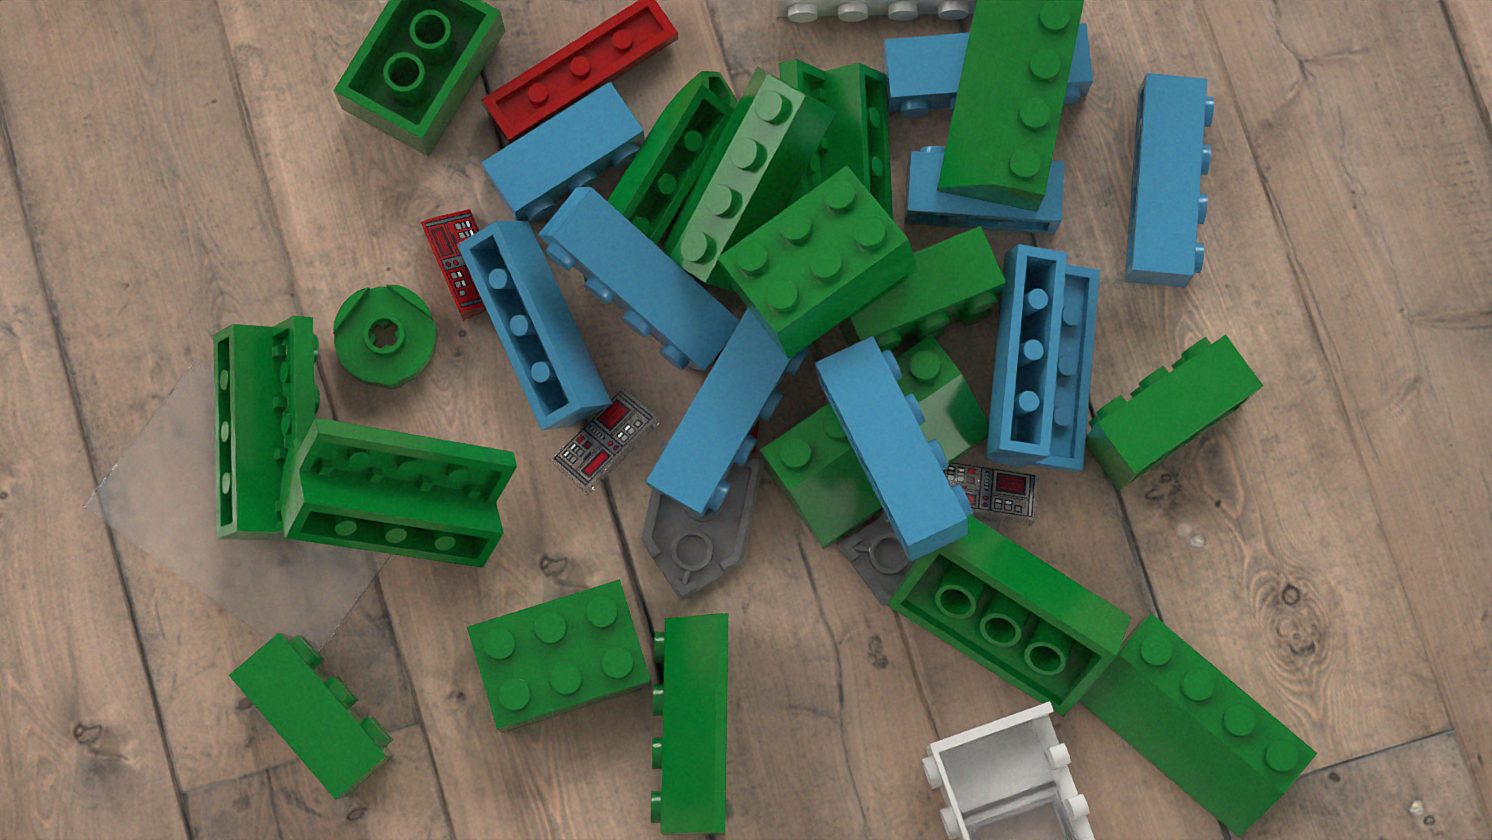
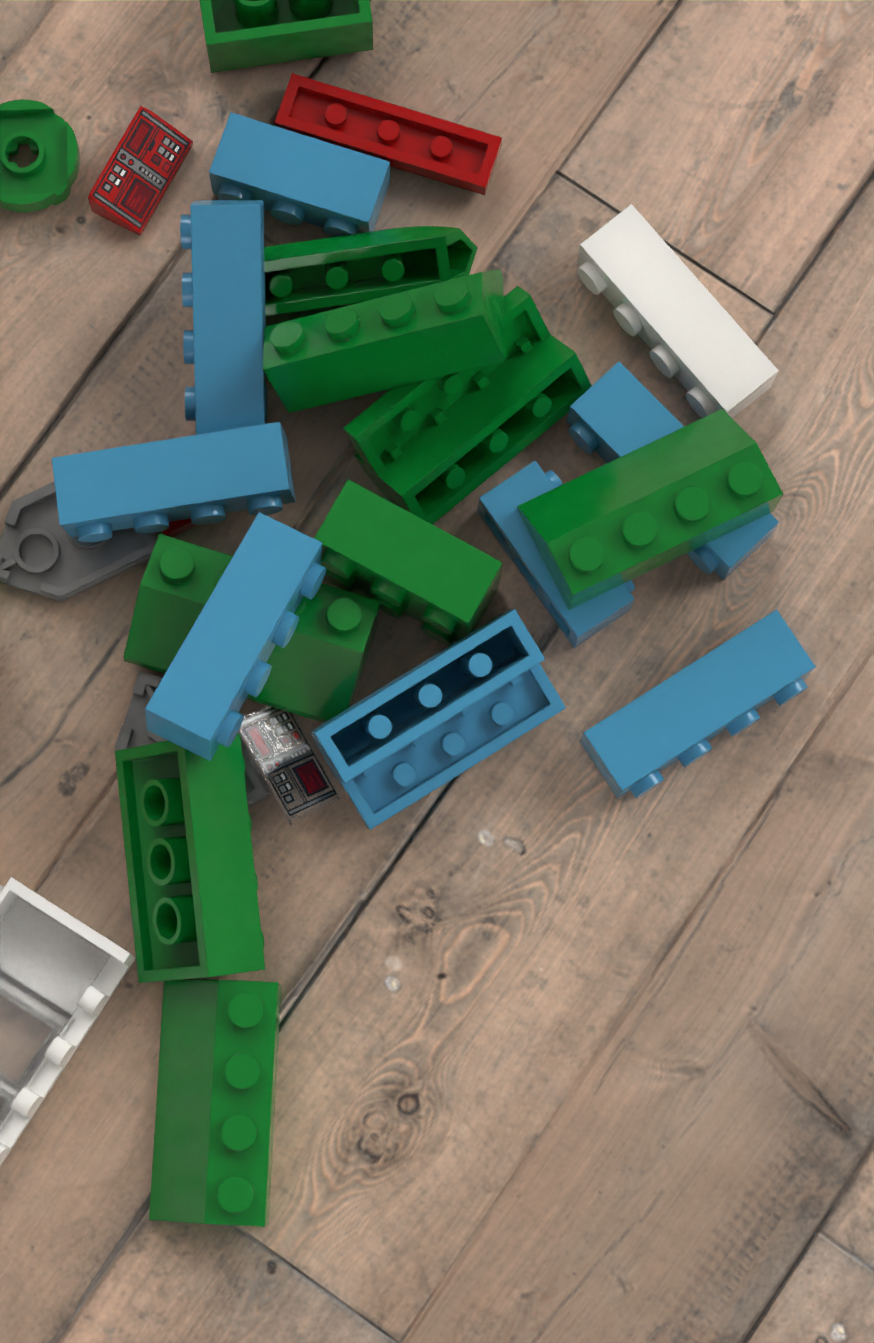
camera: 50 degrees right, 0 degrees up
(534, 324) = (123, 267): dark azure brick -> none
(605, 441) = (76, 407): slope -> none
(818, 261) = (347, 444): green brick -> none
(1170, 409) = (478, 861): green brick -> none

